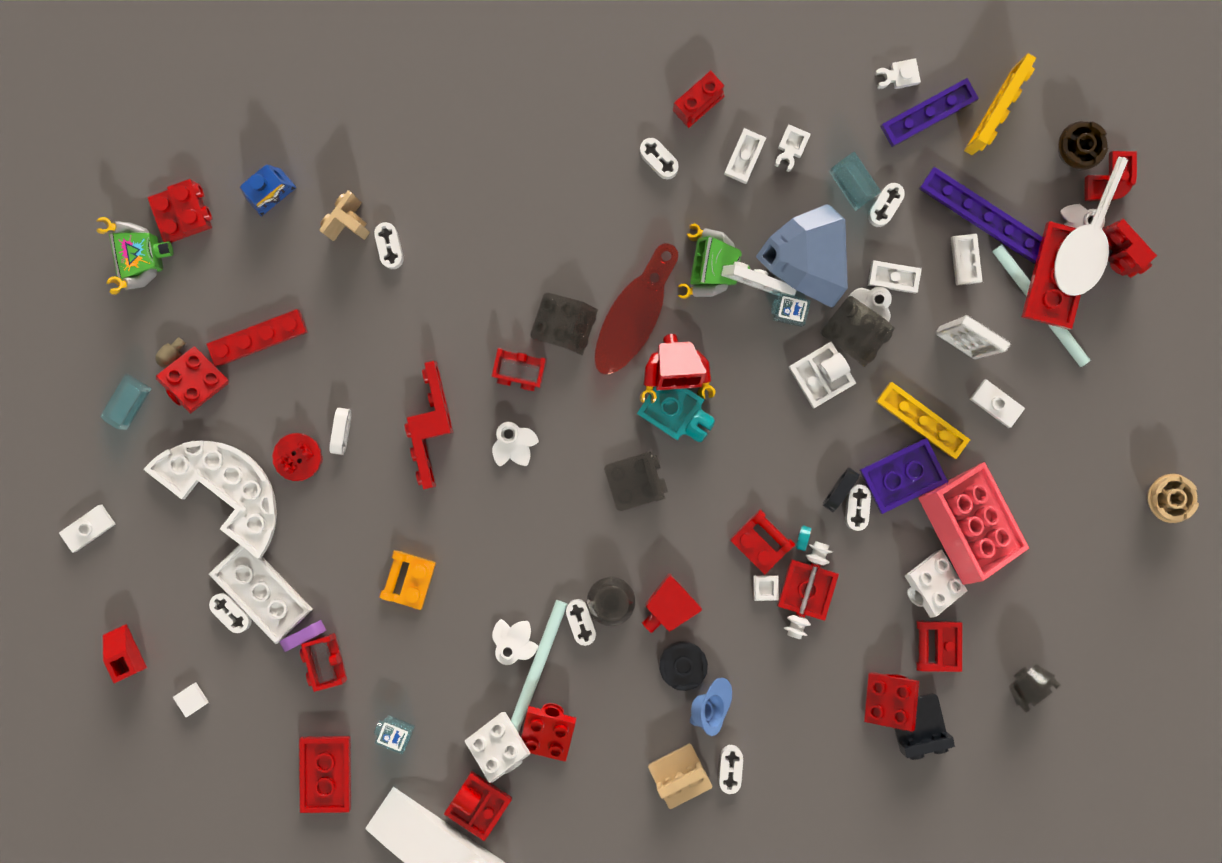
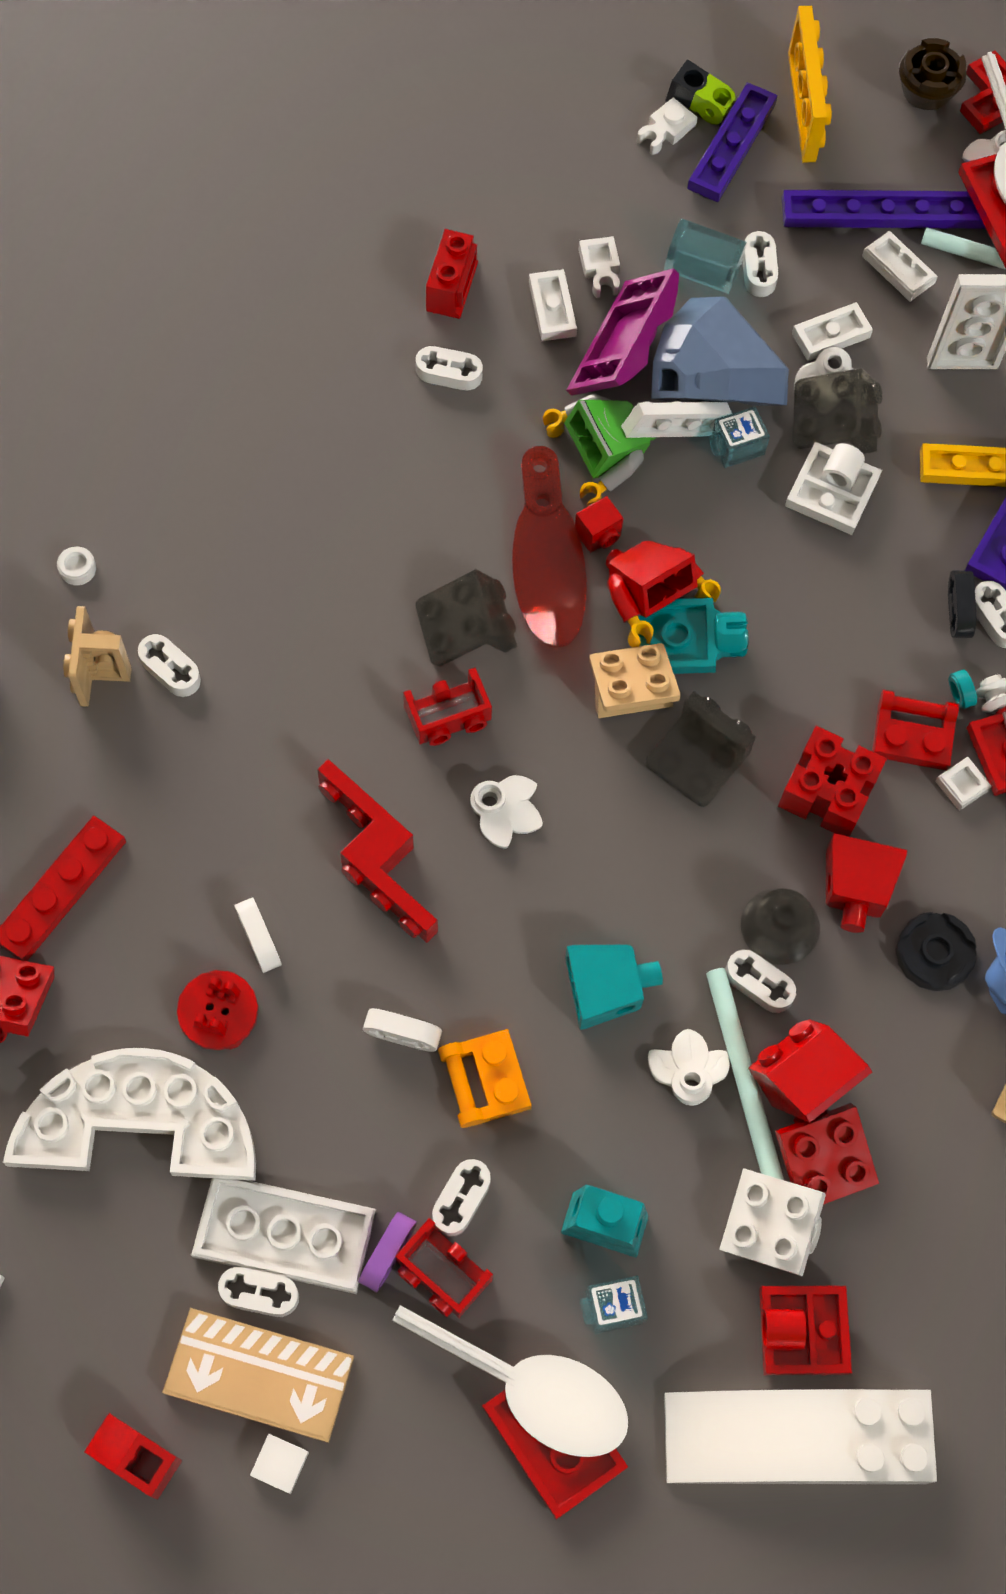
camera: 35 degrees left, 20 degrees down
(206, 652) = (259, 1375): none -> tan tile
(332, 756) = (548, 1394): none -> white piece
(354, 626) = (453, 1192): none -> white beam
(375, 152) = (76, 565): none -> white tile
(381, 529) = (402, 1030): none -> white beam
(416, 692) = (606, 1220): none -> teal torso
(501, 573) = (607, 981): none -> teal torso
(565, 689) = (808, 1070): none -> red slope
(626, 420) = (633, 680): none -> tan bracket
(674, 314) = (599, 524): none -> red plate
(689, 559) = (838, 803): none -> red brick
(769, 207) = (627, 333): none -> magenta slope
(934, 67) = (701, 93): none -> leg

